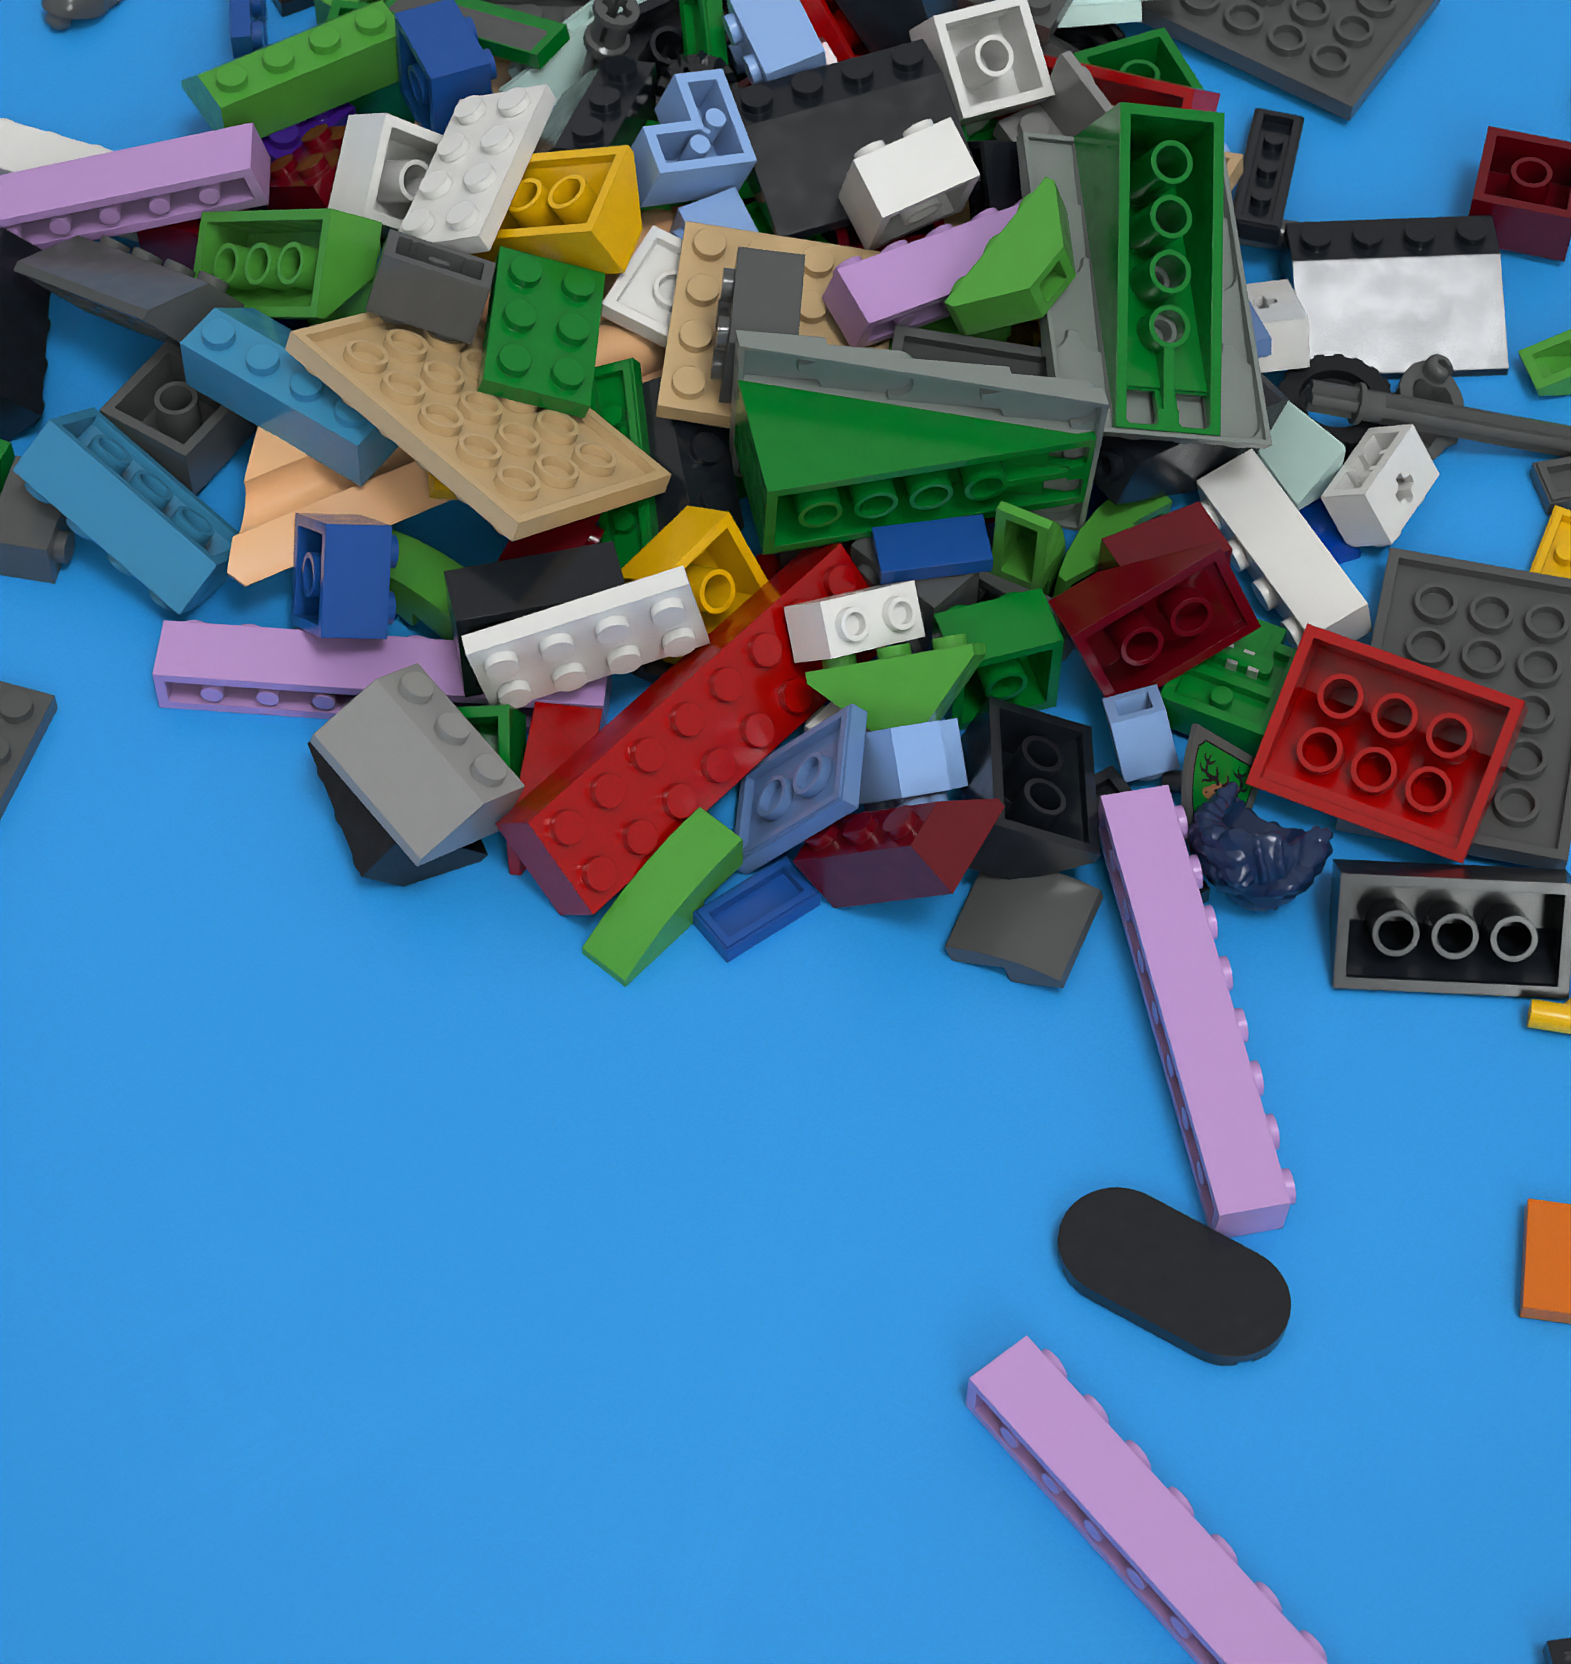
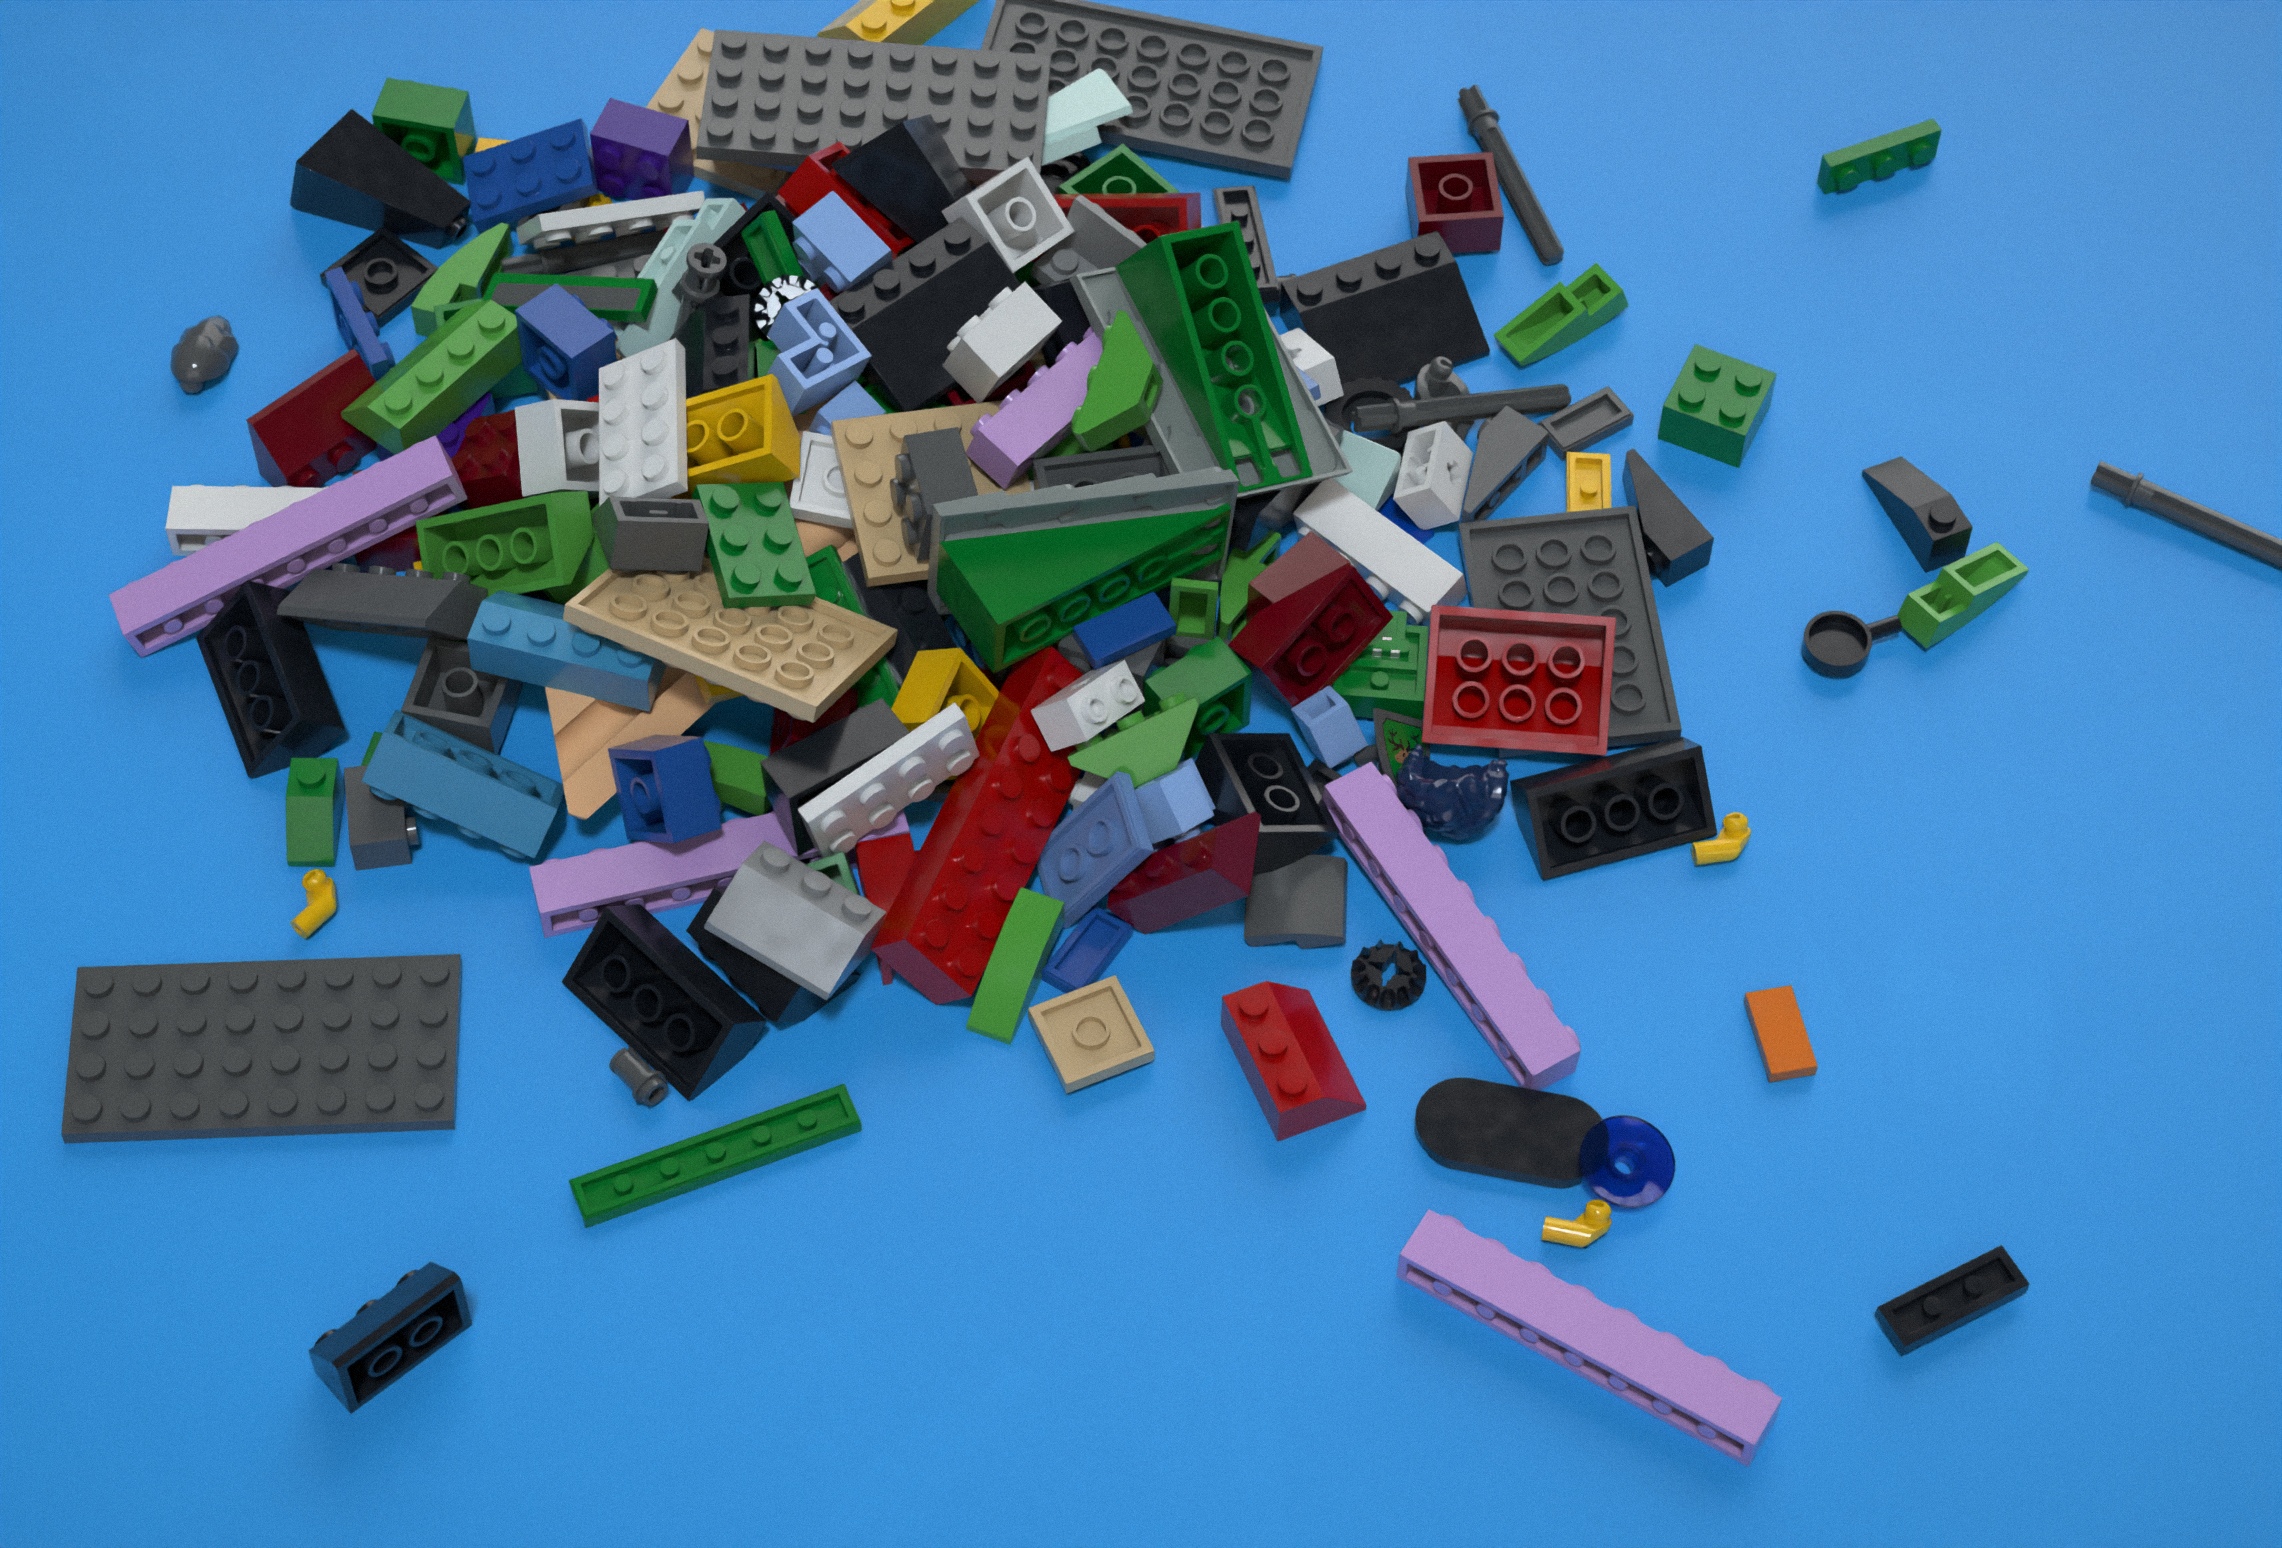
camera: 20 degrees left, 0 degrees up
(136, 90) = (303, 434): none -> dark red slope
(190, 901) = (646, 1084): none -> dark grey pin
(233, 1007) = (714, 1155): none -> green tile
(251, 812) = (662, 999): none -> black slope
(718, 1002) = (1091, 1034): none -> tan plate
(941, 1102) = (1289, 1058): none -> red slope
(1105, 1064) = (1401, 988): none -> black gear
(1214, 1423) = (1583, 1229): none -> yellow arm
(1313, 1334) = (1634, 1144): none -> clear blue dish
(1473, 491) = (1504, 457): none -> dark grey slope

